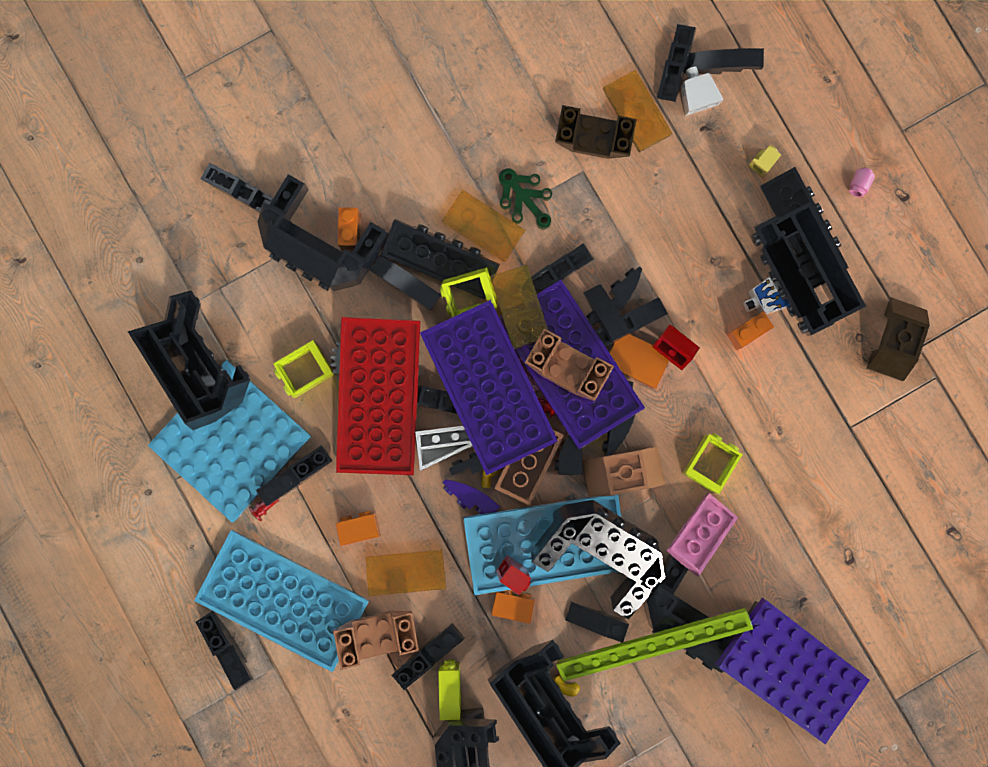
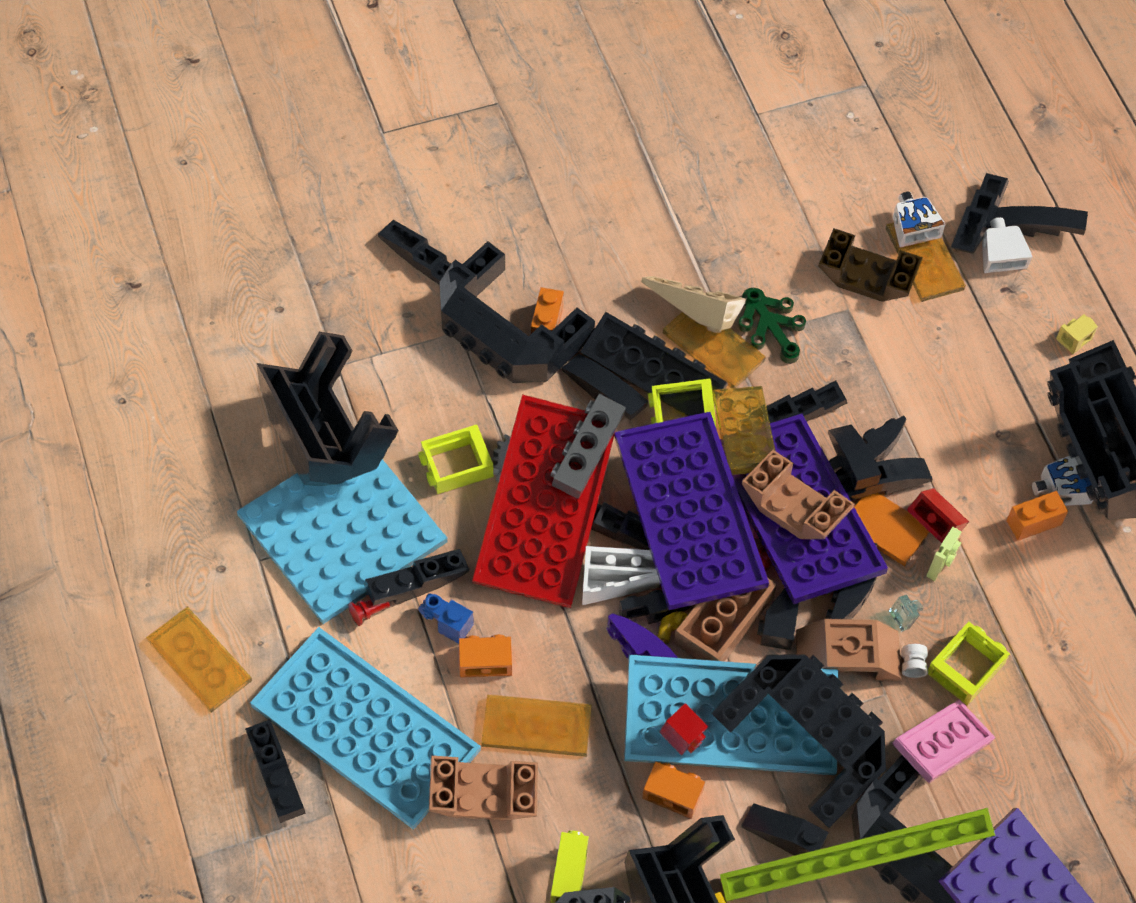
camera: 10 degrees right, 25 degrees down
(149, 570) = (199, 659): none -> clear yellow tile
(326, 505) = (452, 618): none -> blue brick
(397, 383) = (572, 480): none -> dark grey brick
(427, 656) = (545, 832): black slope -> none
(470, 197) = (709, 308): none -> tan wedge
(626, 82) = (916, 220): none -> torso
(661, 431) = (905, 612): none -> clear light blue tile
(671, 465) = (914, 660): none -> white wheel
(686, 378) = (946, 554): none -> yellowish green plate

